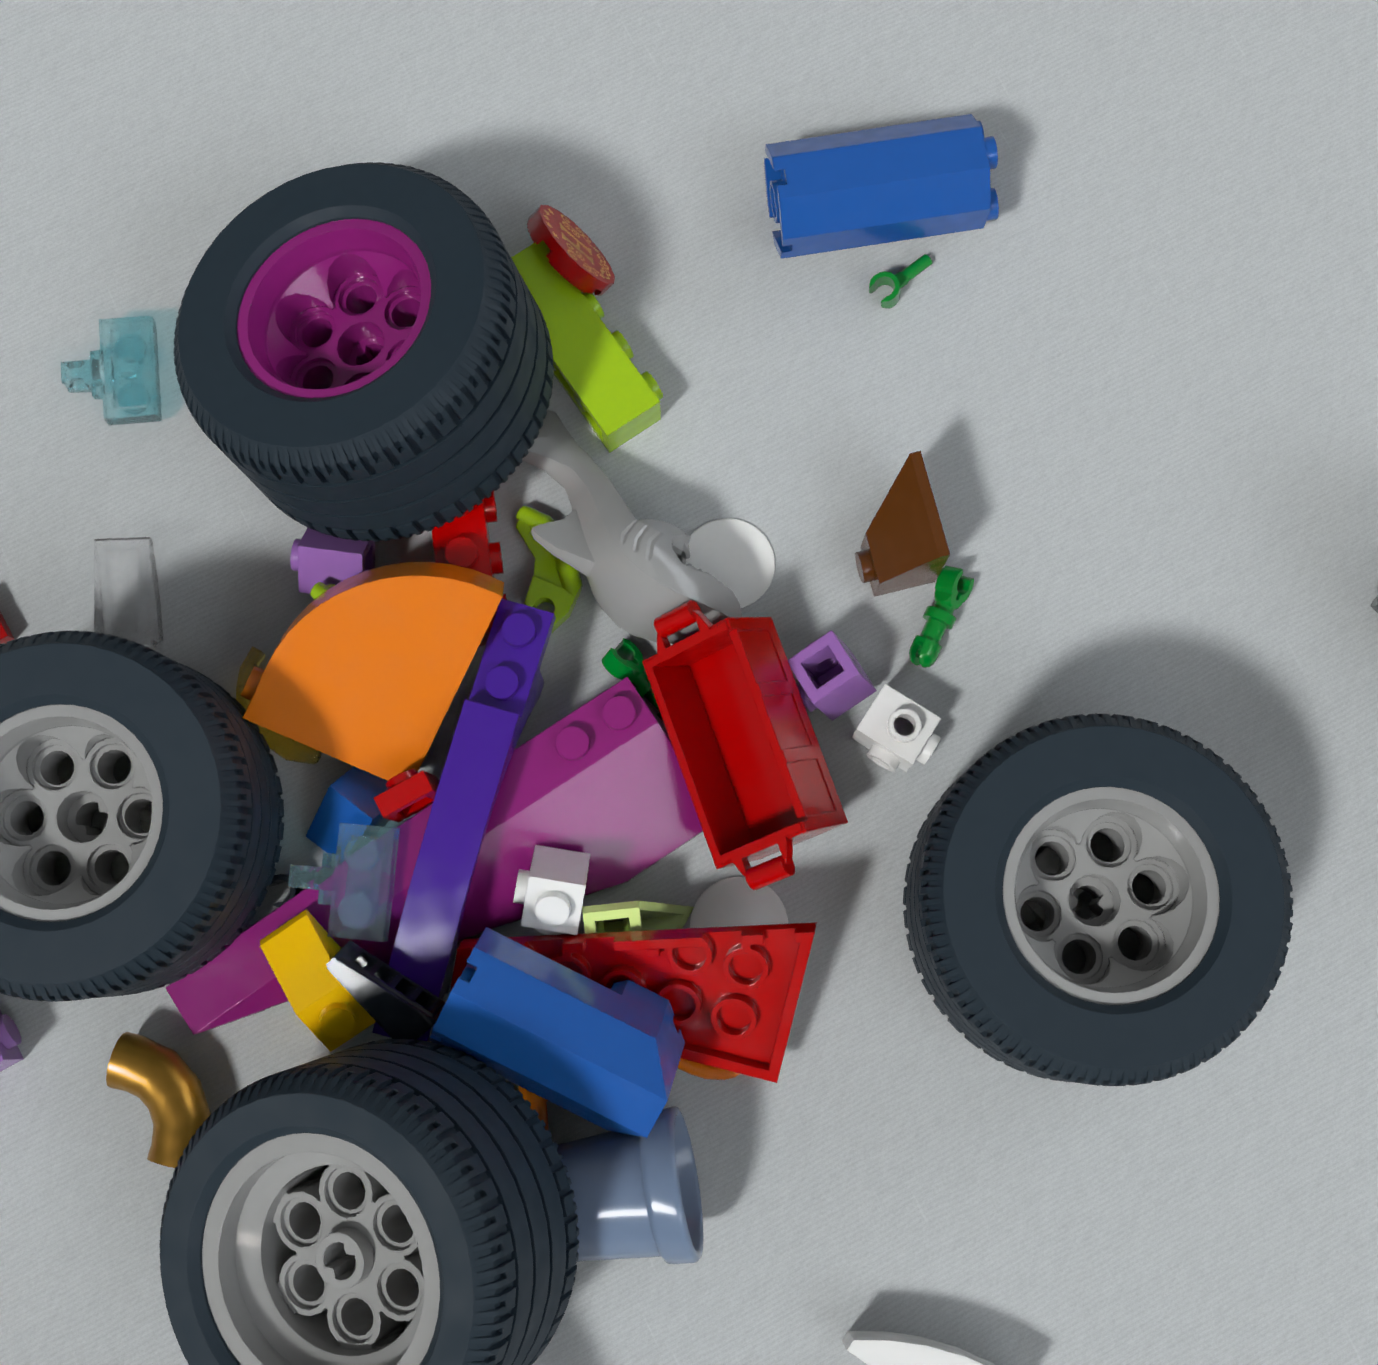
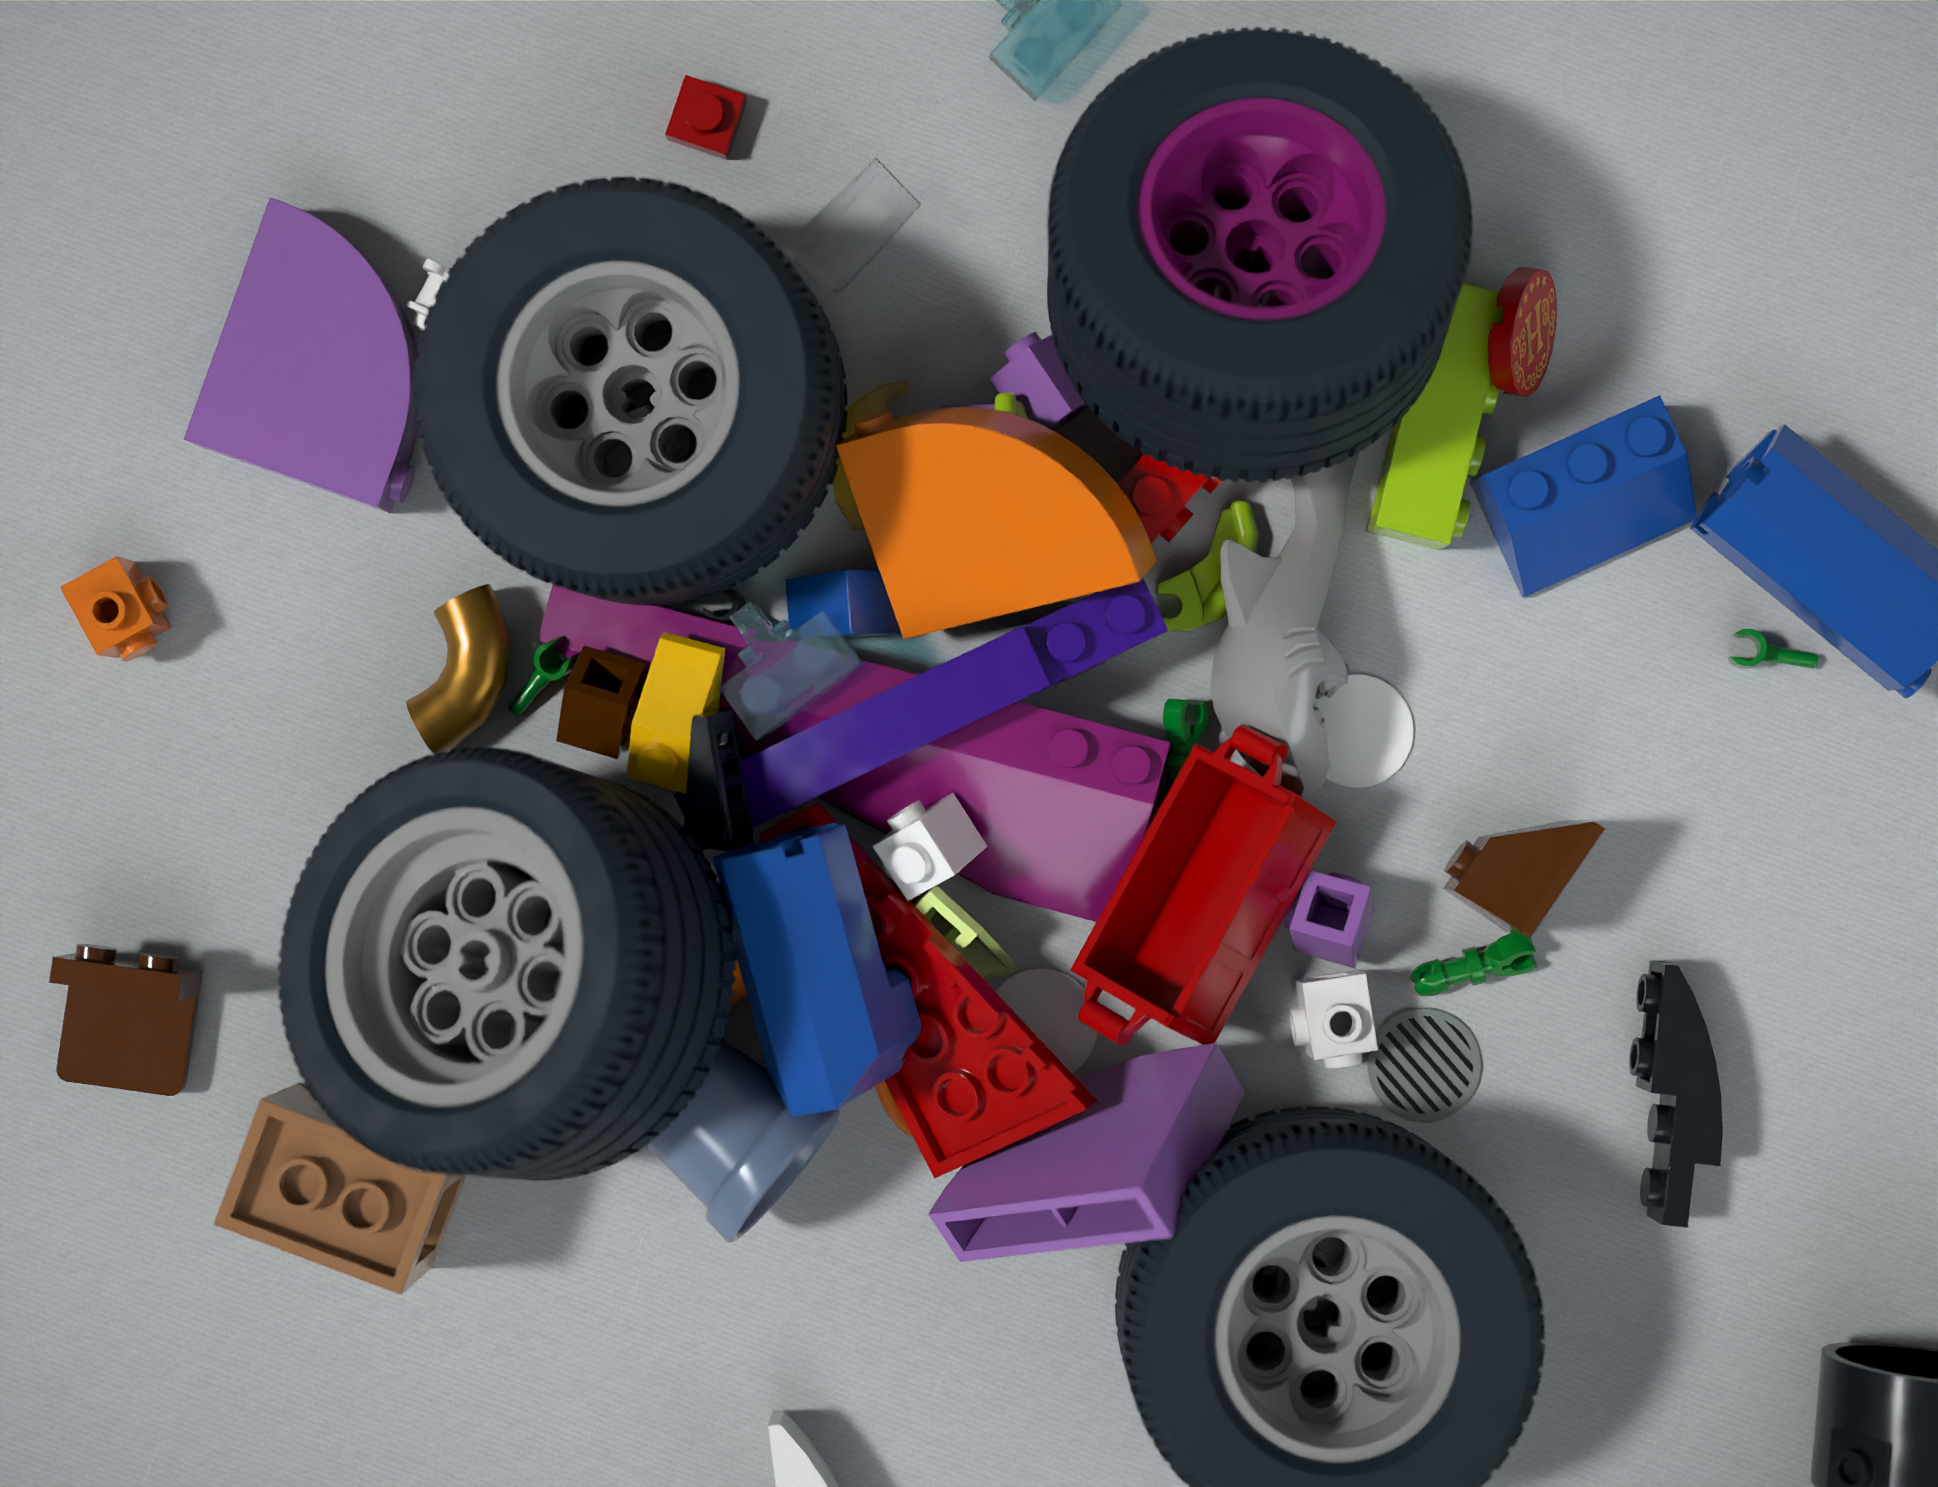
camera: 45 degrees right, 10 degrees up
(216, 1043) = (548, 668): none -> green hand
(266, 1026) = (600, 702): none -> reddish brown brick
(407, 794) = (898, 646): red plate -> none
(706, 300) = (1588, 496): none -> blue slope
(863, 963) = (1102, 1172): none -> medium lavender brick
(977, 703) = (1424, 1065): none -> light grey sticker
(1114, 543) = (1680, 1065): none -> black slope

